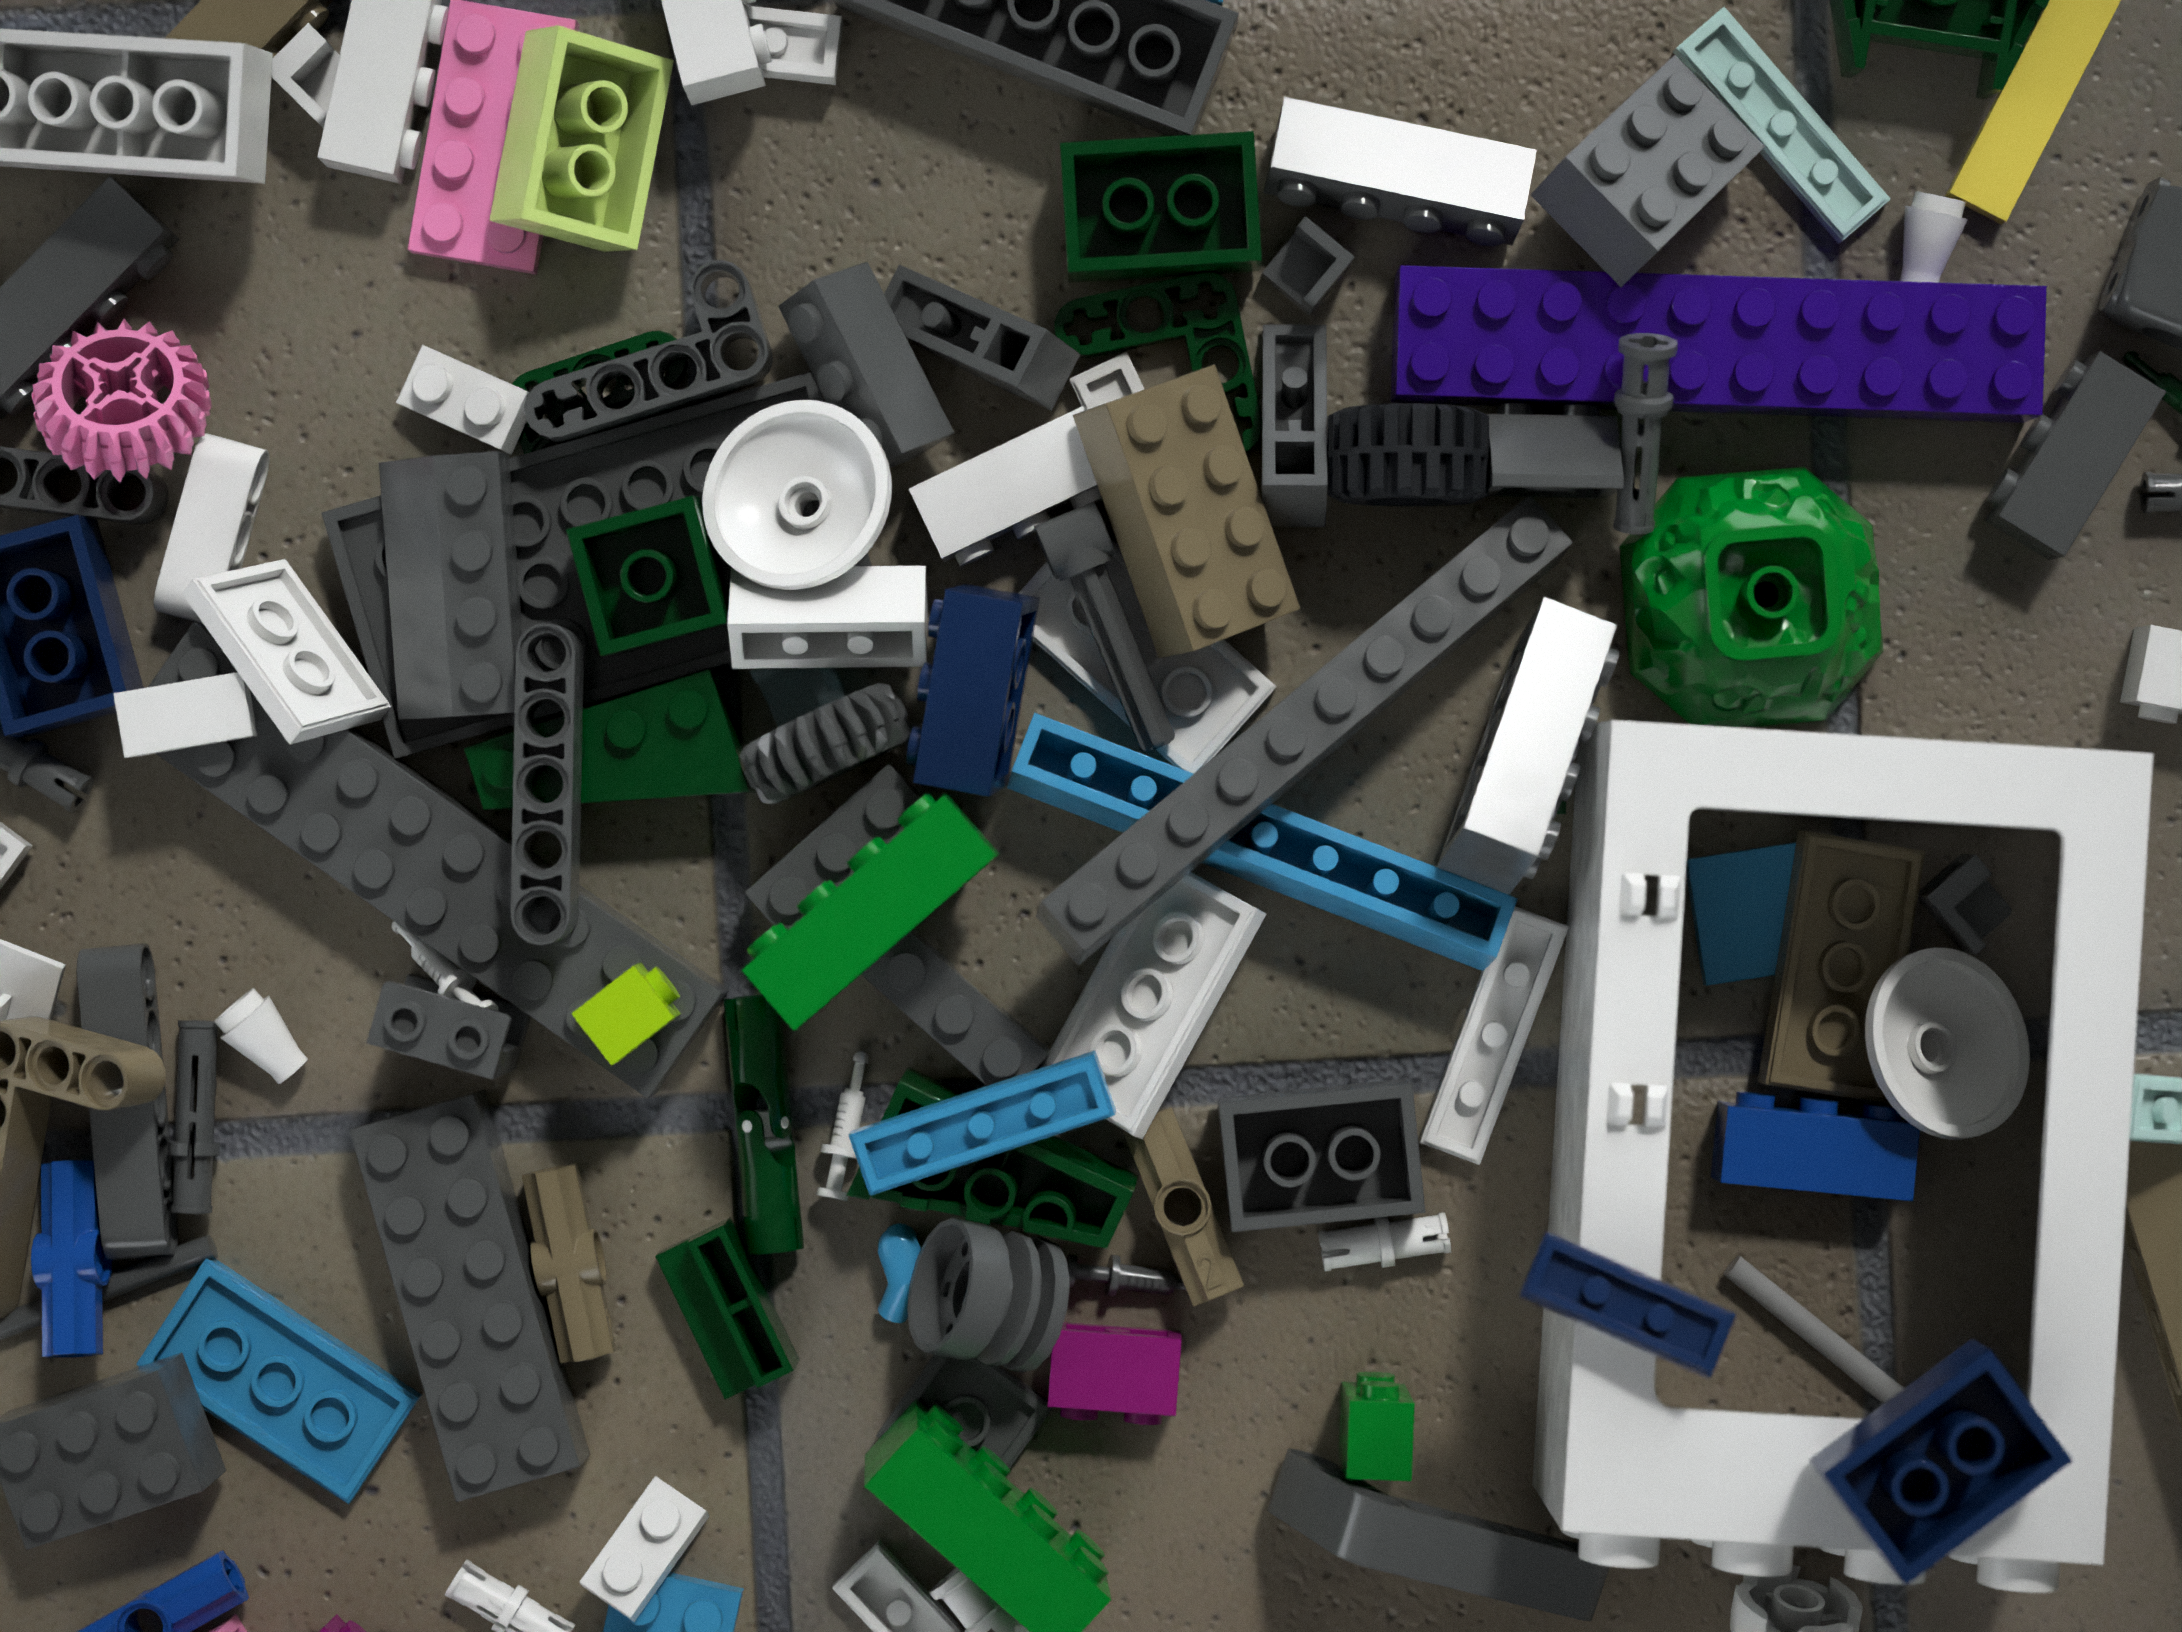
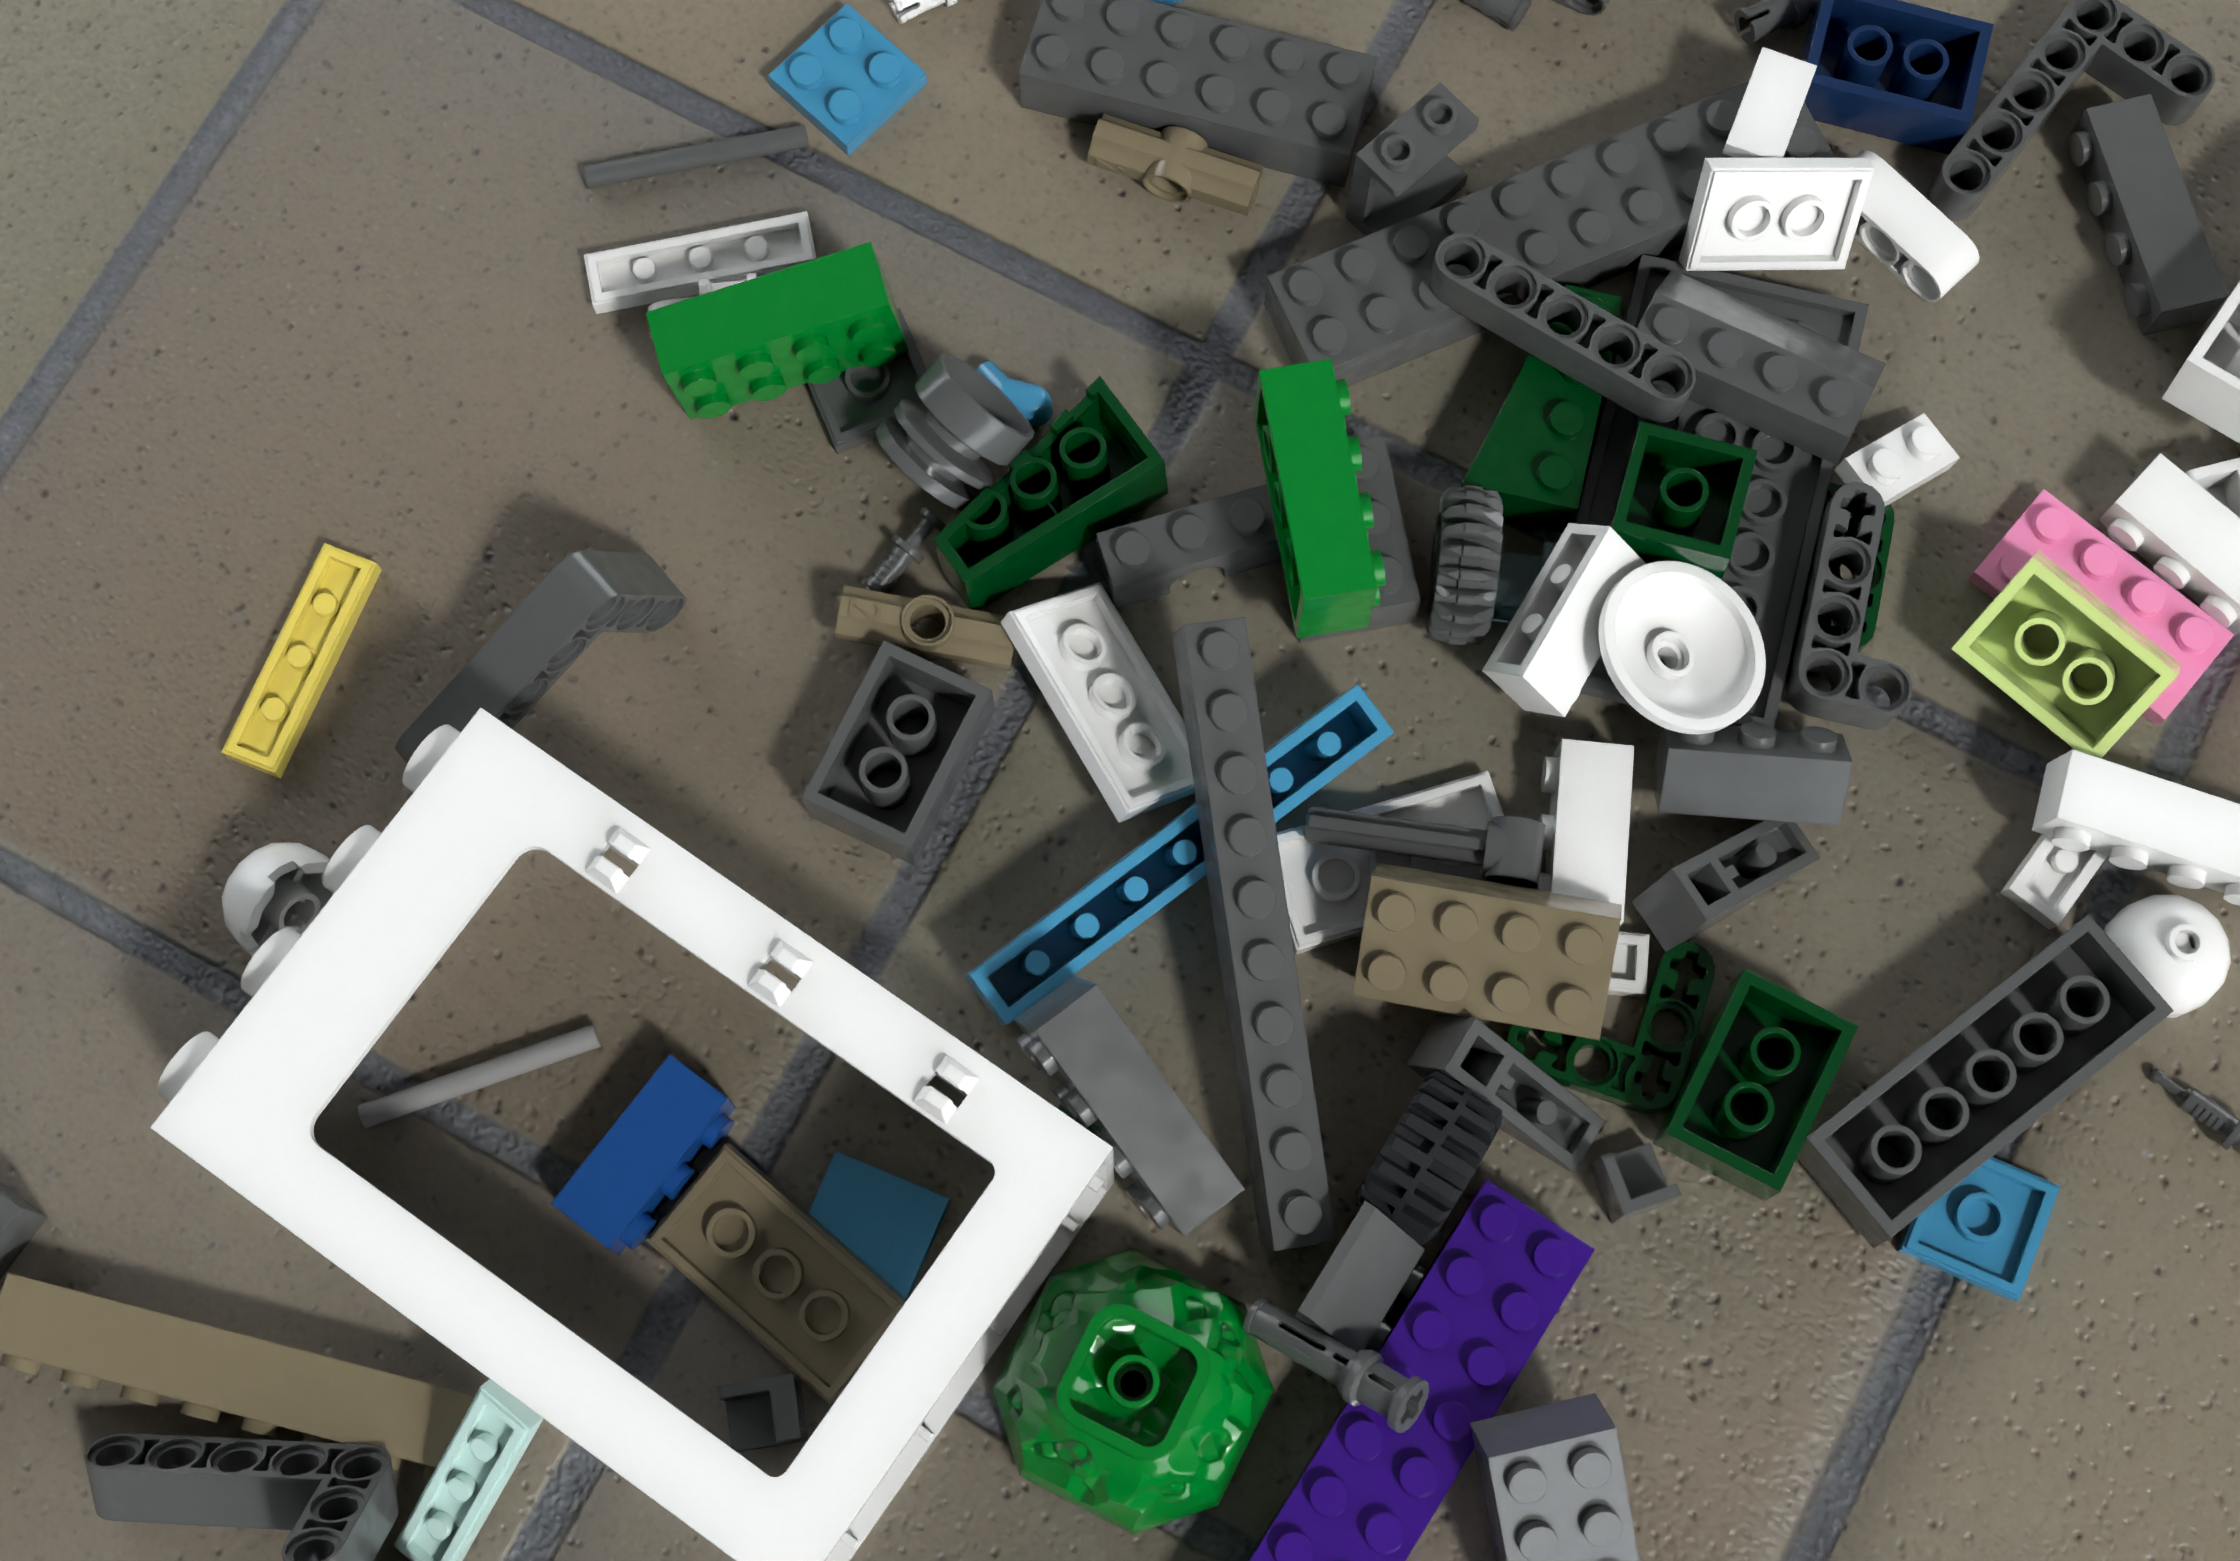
camera: 125 degrees right, 15 degrees down
(120, 380) = (2041, 208): bright pink gear -> none
(260, 1034) = (1485, 49): white cone -> none
(451, 981) = (1436, 194): white piece -> none
(628, 1011) = (1345, 286): lime brick -> none
(644, 1548) = (925, 94): white plate -> none
(728, 1309) = (1066, 257): dark green piece -> none
(766, 1166) = (1144, 340): dark green piece -> none
(847, 1119) = (1150, 420): white piece -> none
(973, 689) = (1443, 698): dark blue brick -> none
(982, 1123) = (1091, 500): dark azure tile -> none
(1115, 1372) = (833, 504): magenta brick -> none
(1376, 1428) = (656, 664): green brick -> none
(1384, 1241) = (796, 770): white pin -> none
(1399, 172) = (1673, 1302): brick -> none
(1493, 1037) = (903, 949): white tile -> none
(1627, 1305) = (624, 858): dark blue tile -> none
(1940, 1460) = (326, 1029): dark blue brick -> none
(1969, 1039) = (670, 1347): white dish -> none

